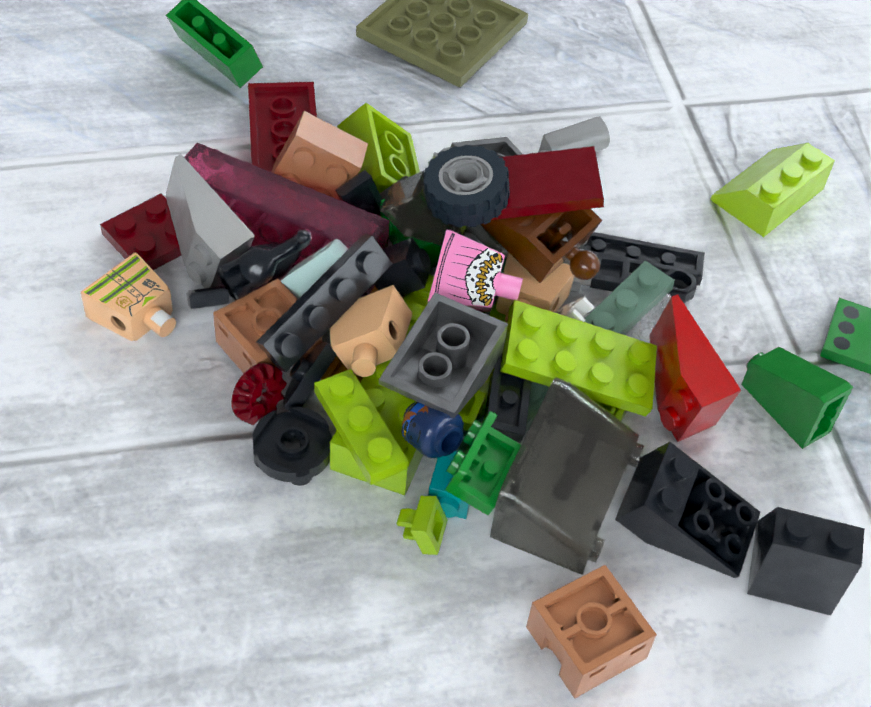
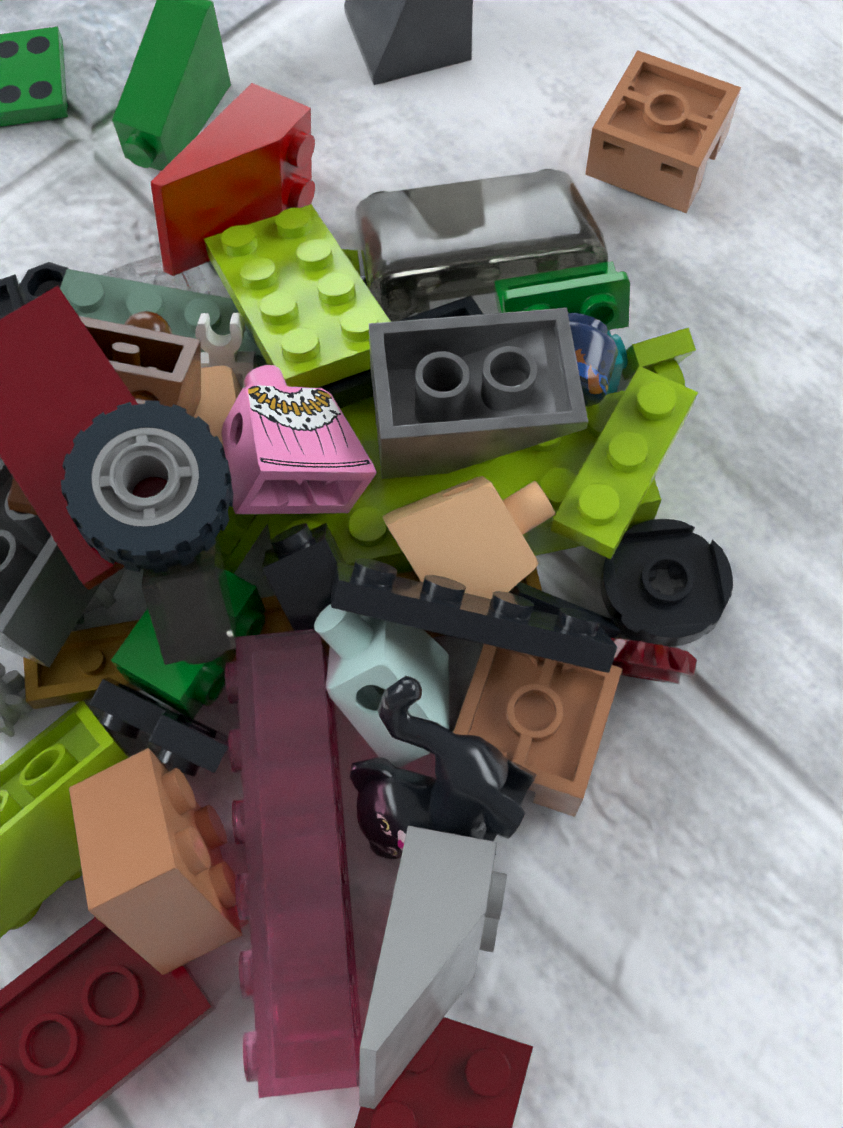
camera: 115 degrees left, 15 degrees up
(130, 300) = (613, 993): light nougat torso -> none
(207, 297) = (542, 855): black tile -> none
(688, 511) = (423, 129): black slope -> none

